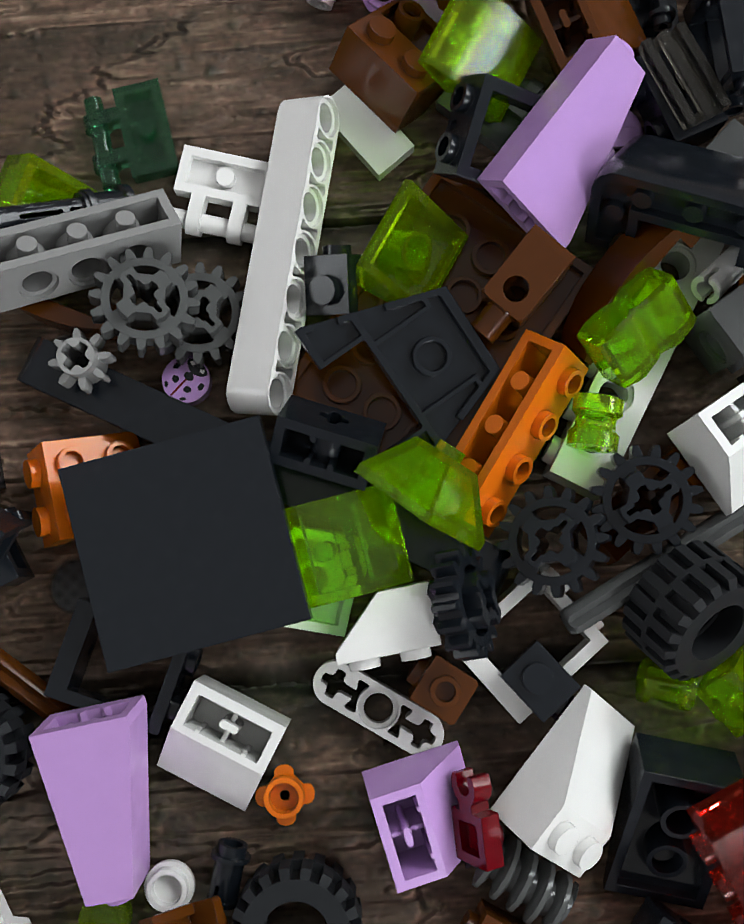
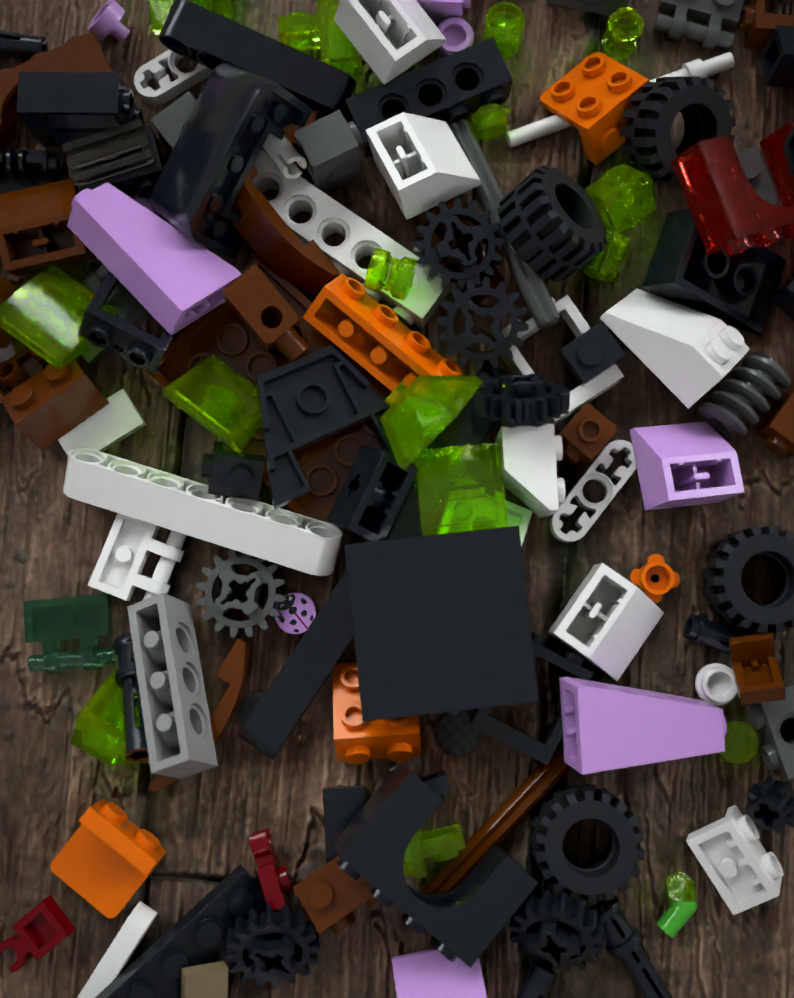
camera: 80 degrees left, 0 degrees up
(68, 353) = (258, 691): light grey gear -> none
(146, 280) = (212, 640): dark grey gear -> none
(475, 826) = (700, 422): dark red plate -> none
(637, 327) = (317, 226): clear neon green brick -> none

